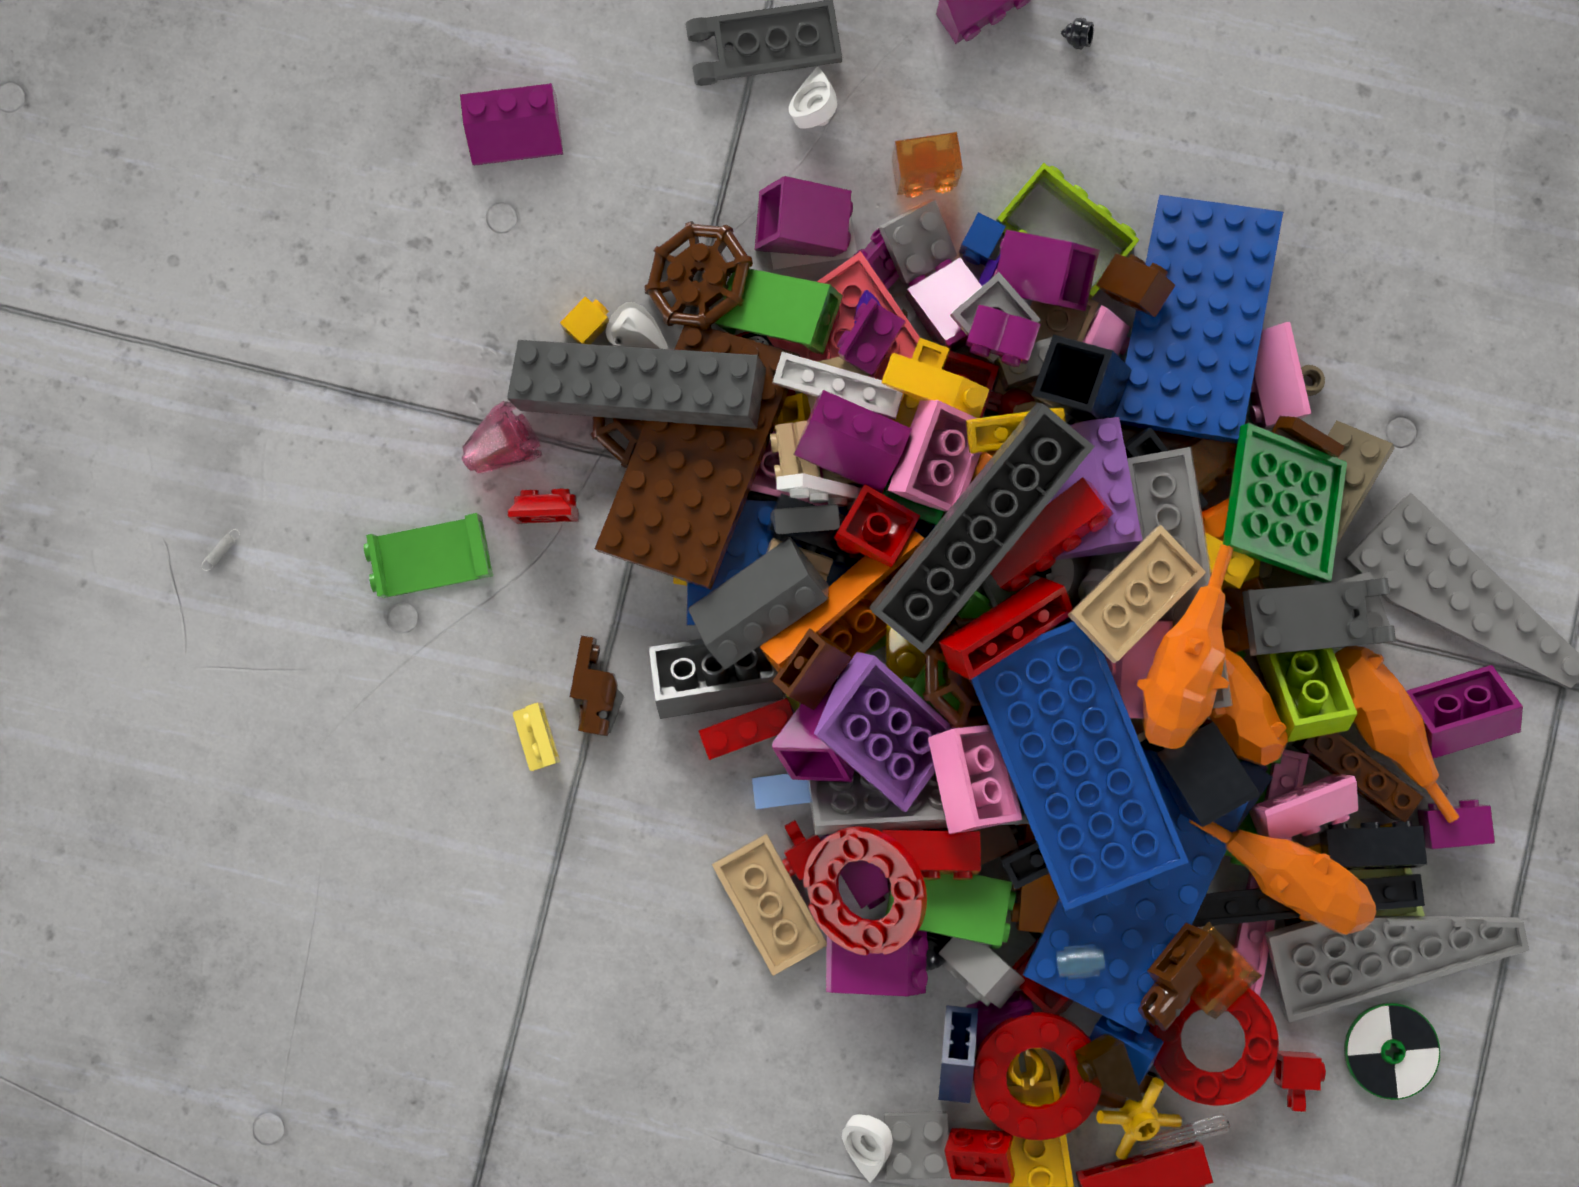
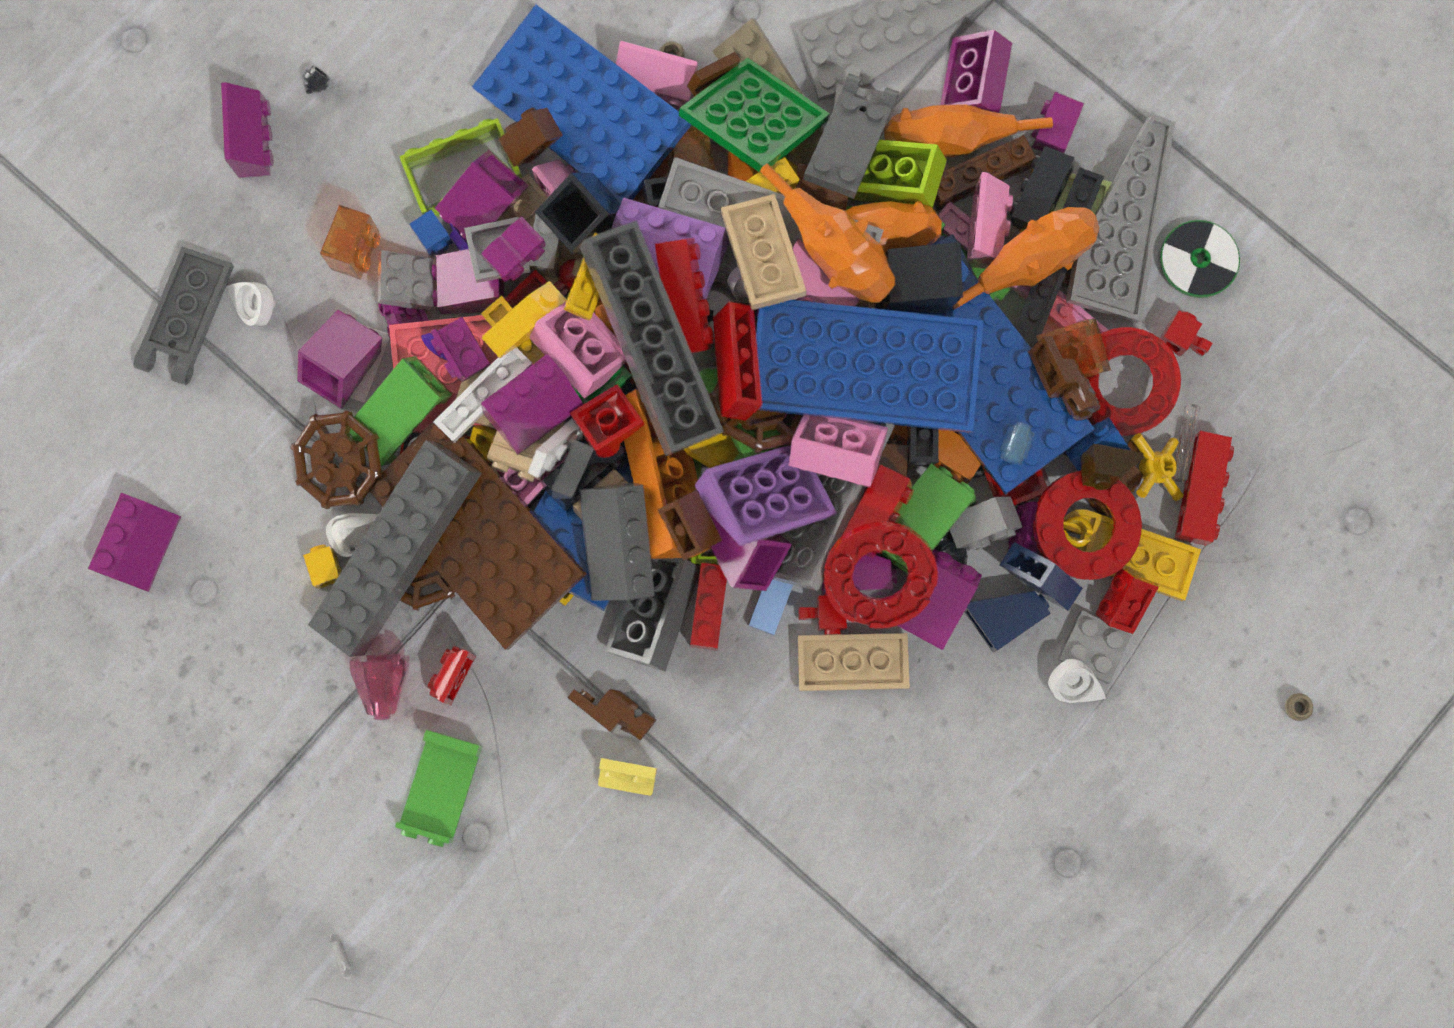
camera: 65 degrees left, 5 degrees down
(899, 1040) = (1006, 617): none -> dark blue slope

